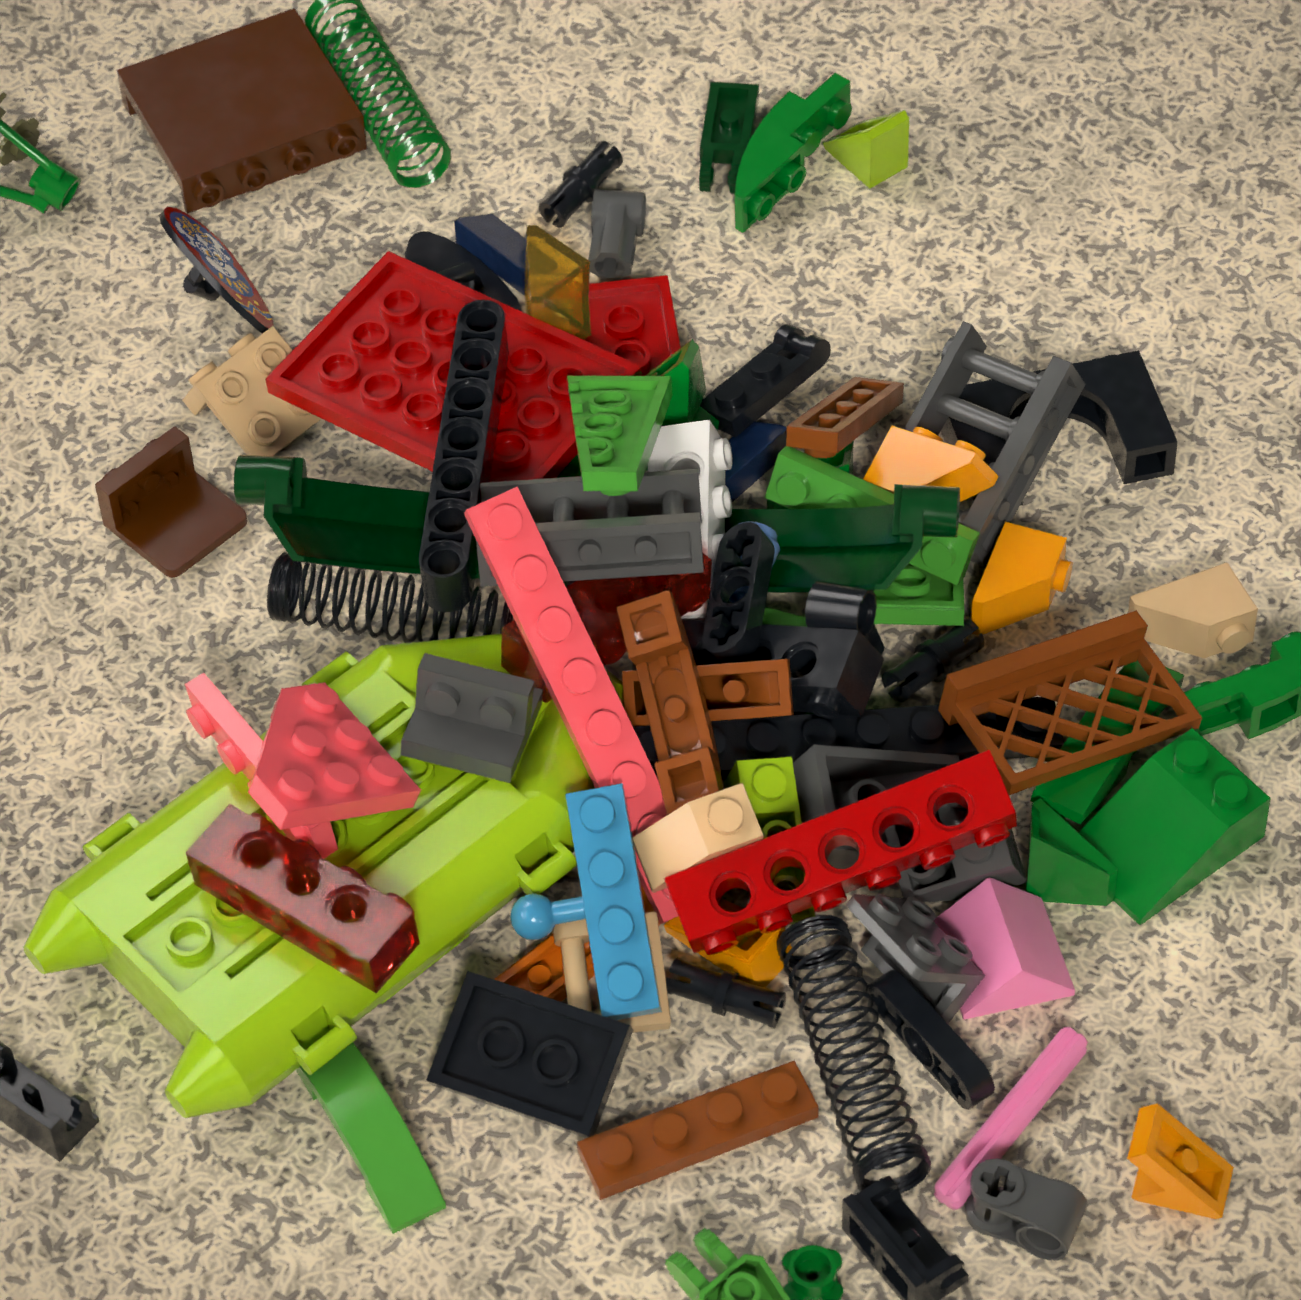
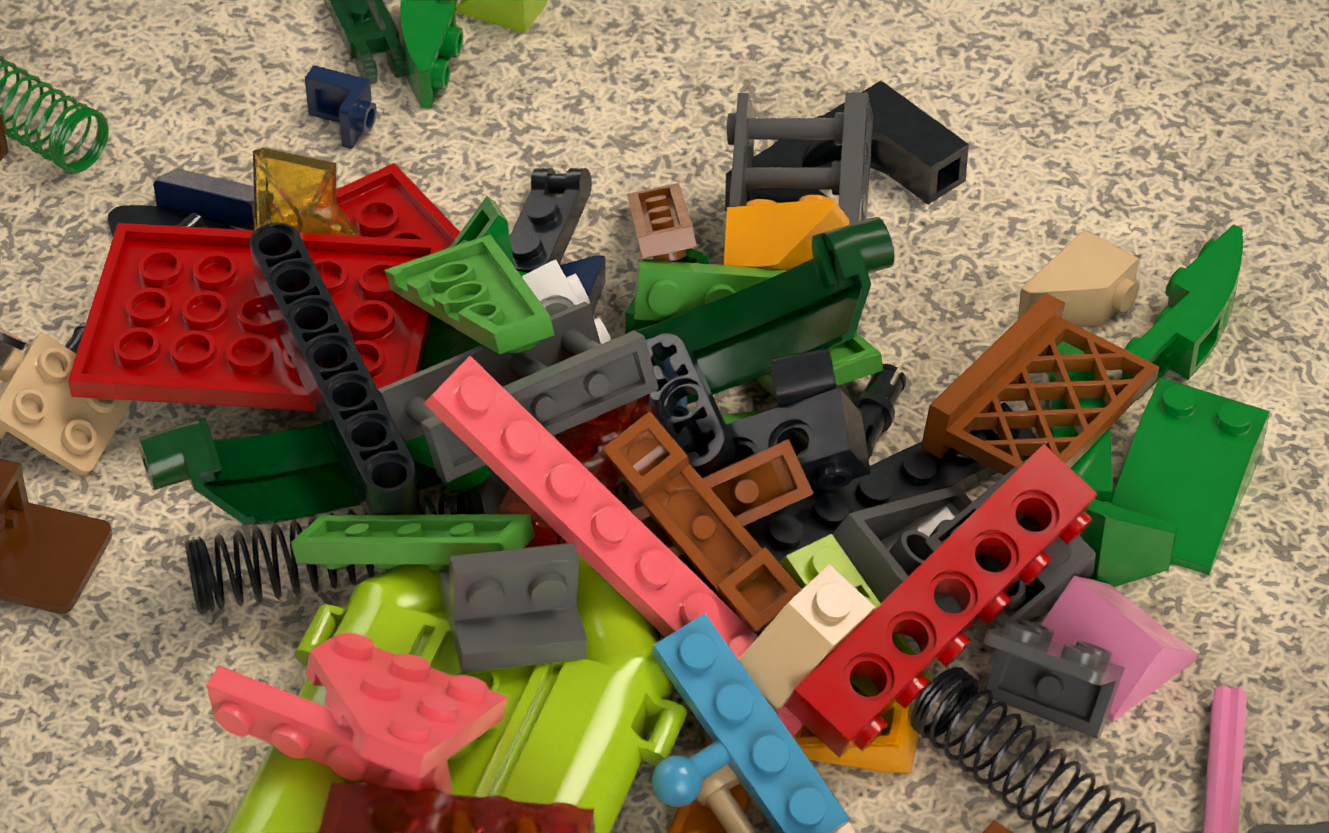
camera: 30 degrees left, 5 degrees down
(432, 624) = (408, 539): none -> bright green plate
(580, 184) = (251, 112): black pin -> none
(615, 225) = (313, 132): dark grey piece -> none
(665, 202) = (341, 100): none -> dark blue bracket
(725, 992) = (889, 784): black pin -> none
(931, 1039) = (1140, 758): black beam -> none
(1020, 577) = (904, 309): light orange slope -> none

